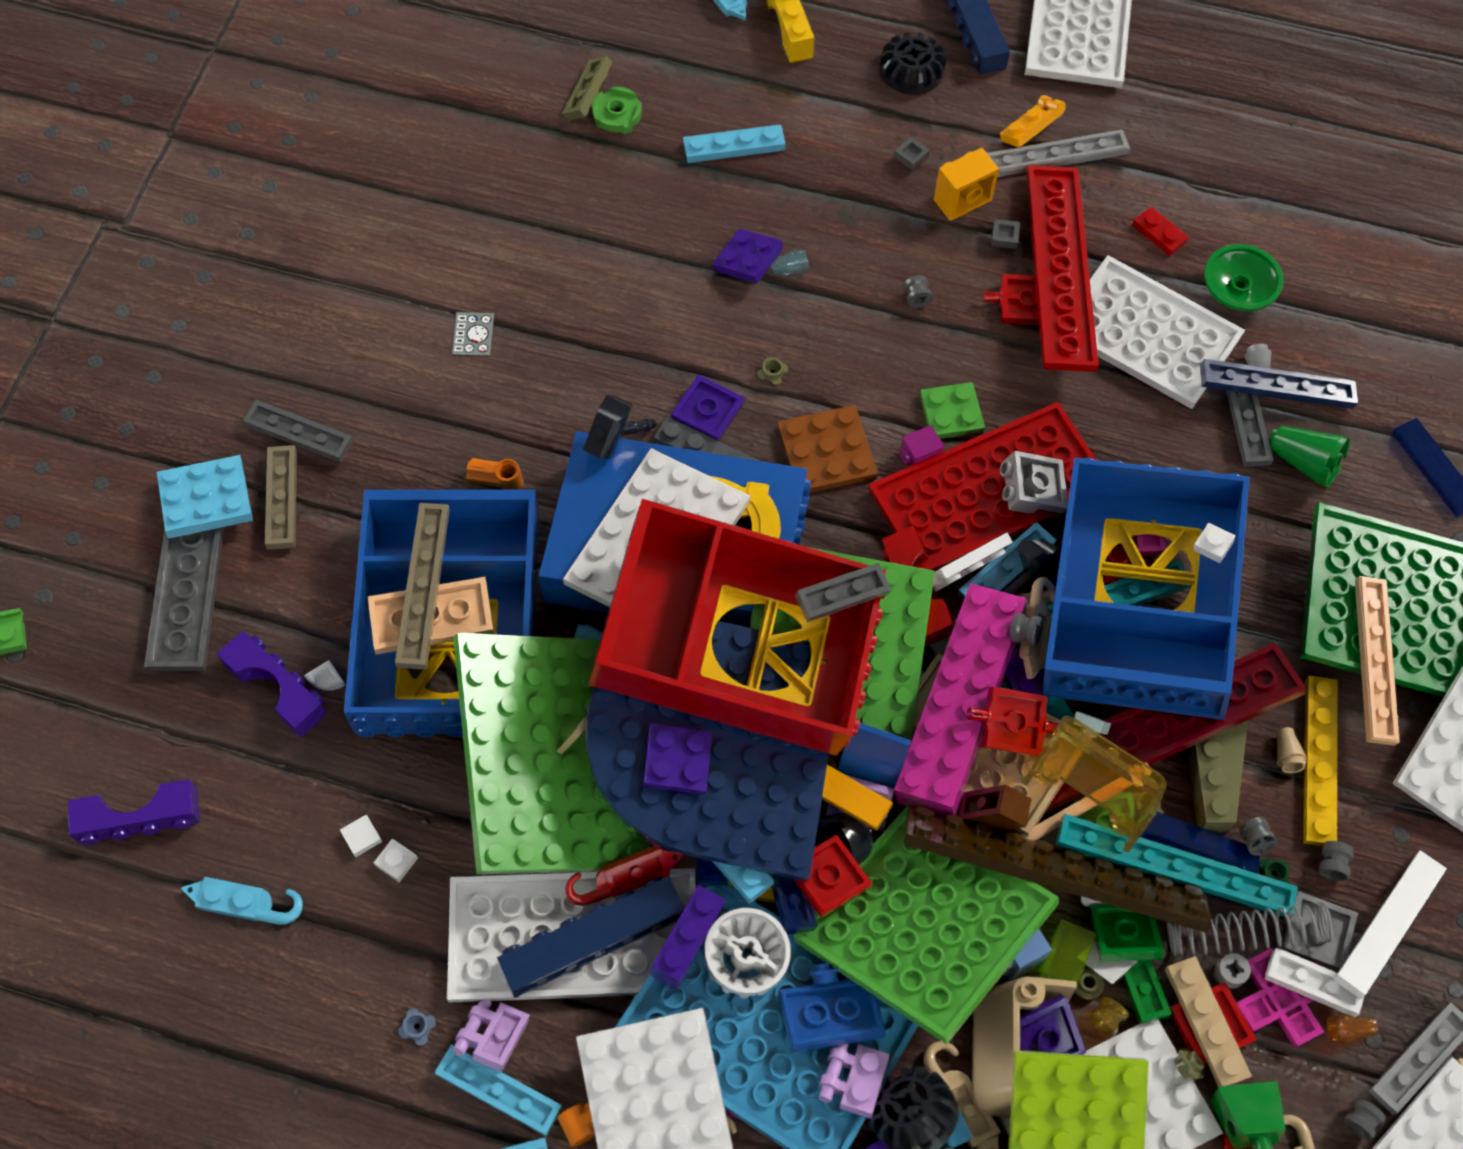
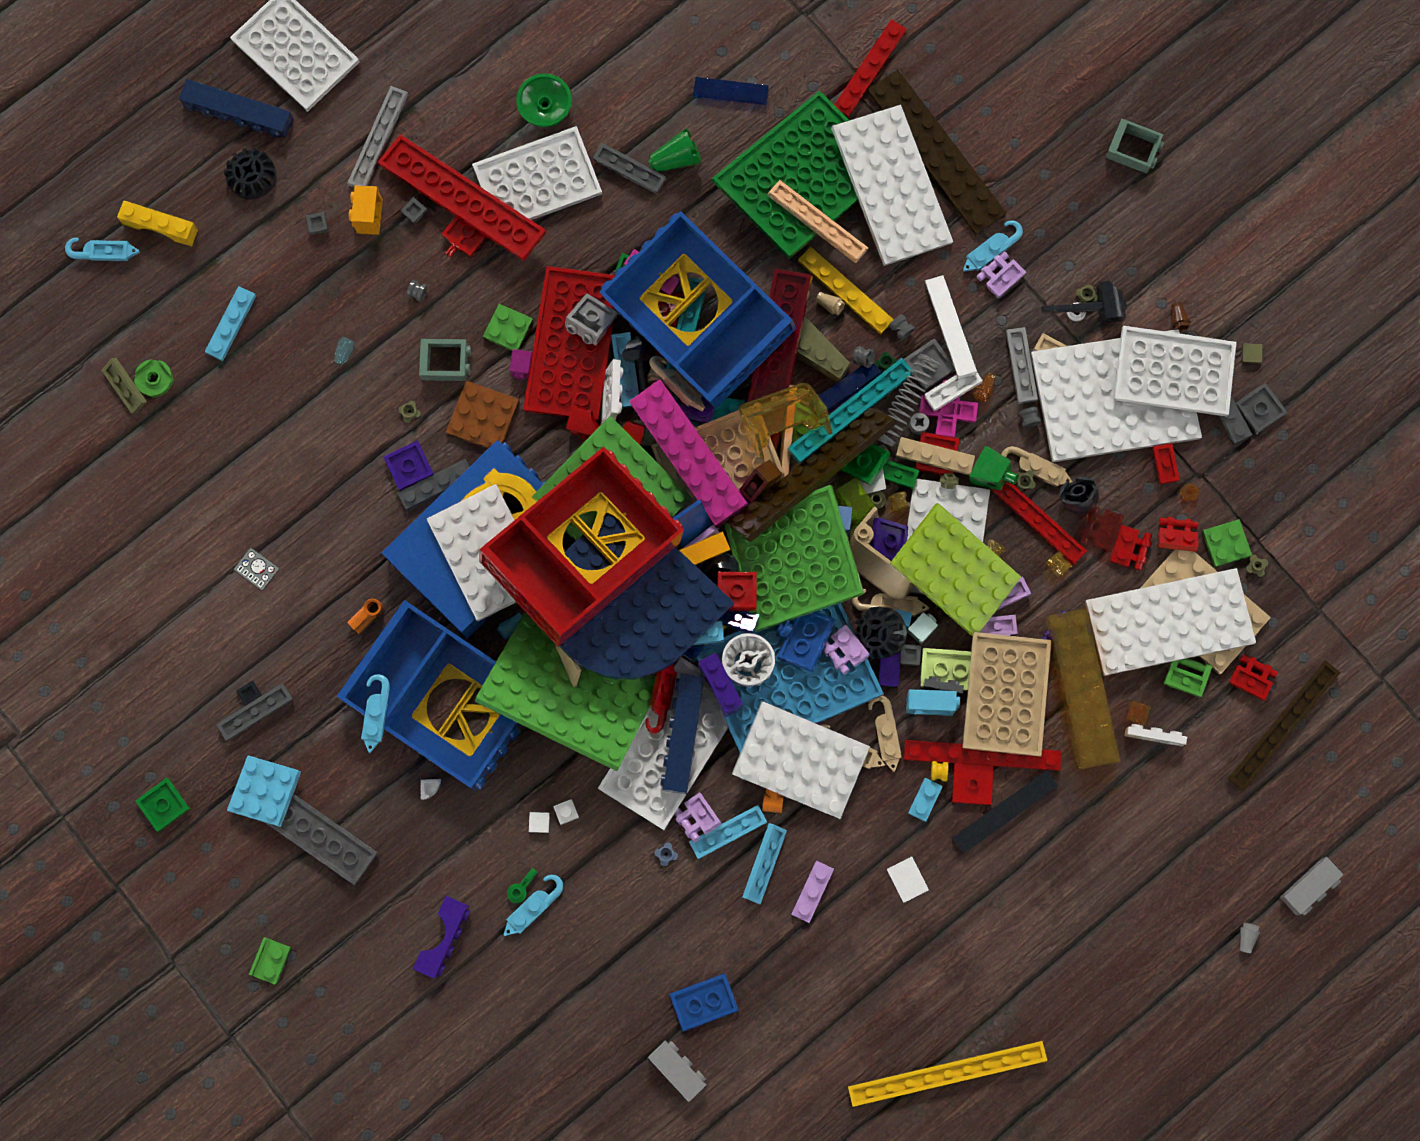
camera: 50 degrees left, 15 degrees up
(124, 405) = (162, 804): none -> green plate
(249, 661) = (389, 824): dark purple arch -> none
(250, 868) = (517, 892): none -> green plate
(281, 497) = (294, 747): dark tan plate -> none
(319, 411) = (249, 692): none -> black tile
(365, 545) = (375, 714): none -> medium azure plate
(422, 586) = (427, 699): dark tan plate -> none
(459, 609) = (445, 706): light nougat plate -> none
(610, 425) = (399, 532): black piece -> none
(677, 759) = (629, 627): dark purple plate -> none
(748, 255) = (321, 371): dark purple plate -> none
(842, 592) = (603, 479): dark grey plate -> none
(850, 345) = (425, 349): none -> sand green window
(1013, 721) = (722, 437): red plate -> none
(1026, 629) = (678, 392): dark grey wheel -> none
(1033, 121) = (347, 134): light orange plate -> none
(1094, 723) = (749, 395): light aqua plate -> none
(1160, 231) = (475, 119): red plate -> none
(1214, 542) = (704, 260): white plate -> none
(1258, 355) = (601, 134): light grey cone -> none
(1278, 383) = (623, 136): plate -> none

